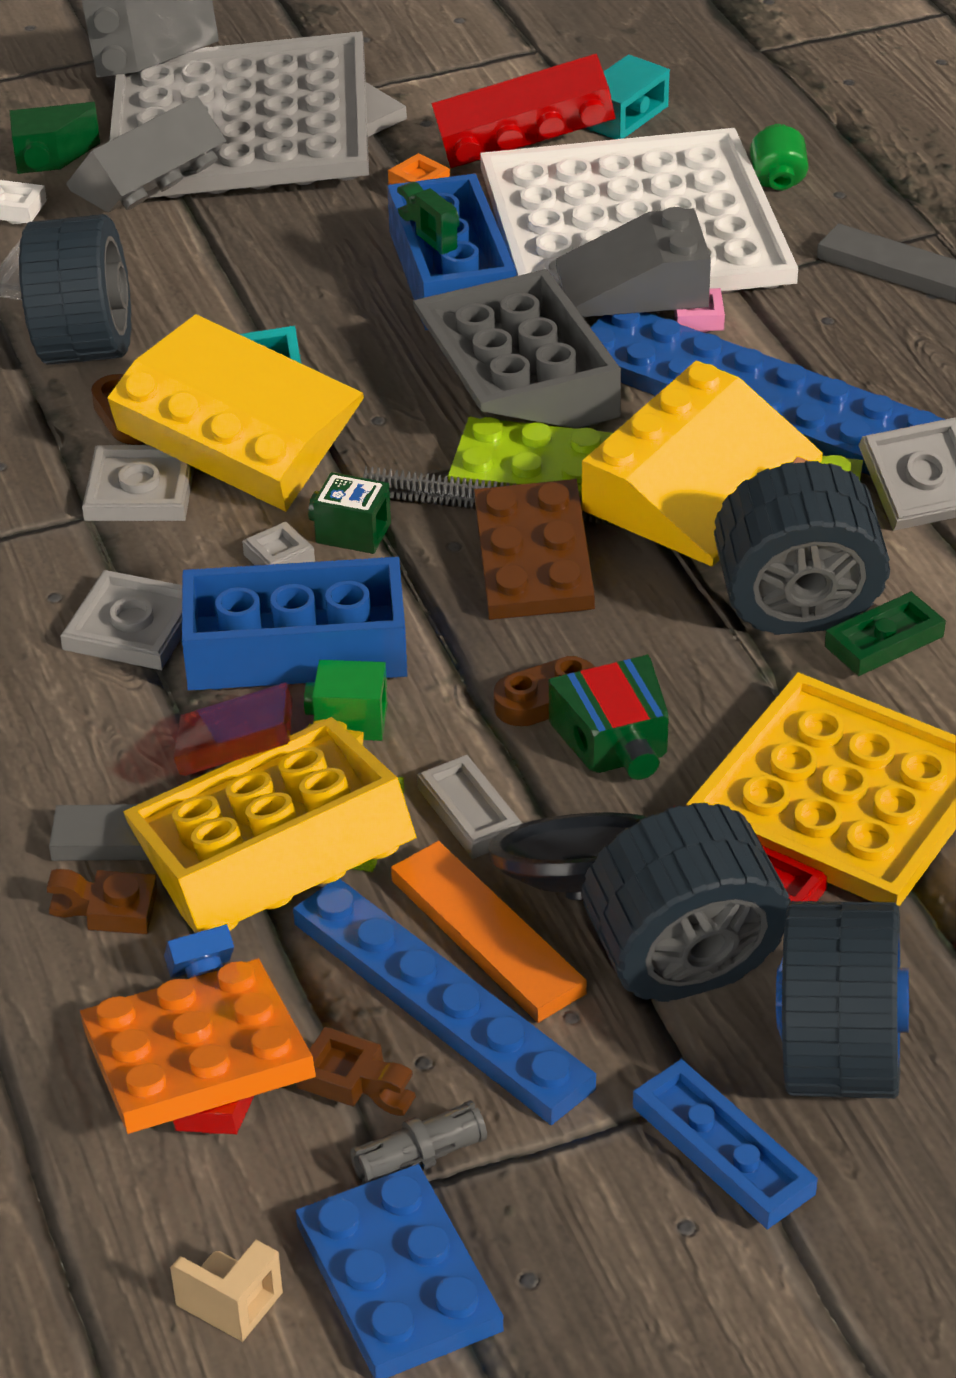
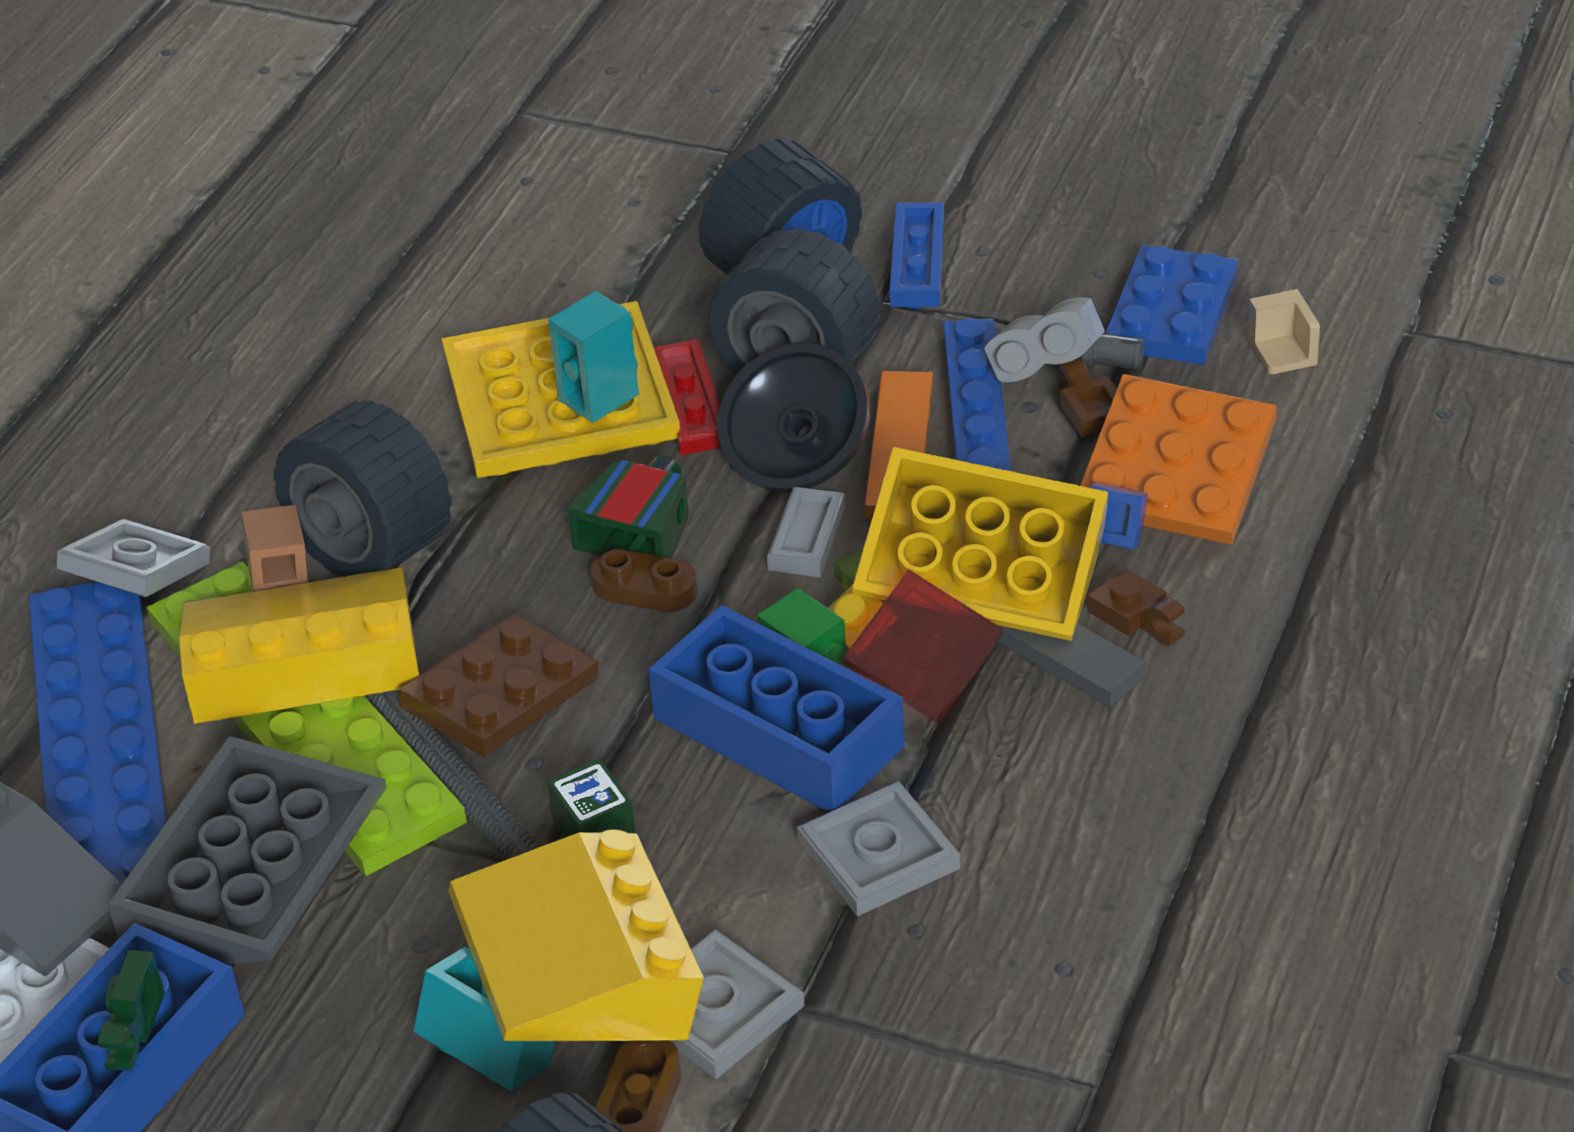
camera: 135 degrees left, 0 degrees up
(278, 546) = (683, 839): light grey tile -> none
(439, 1061) = (1047, 339): none -> light grey brick
(789, 740) = (594, 356): none -> teal brick

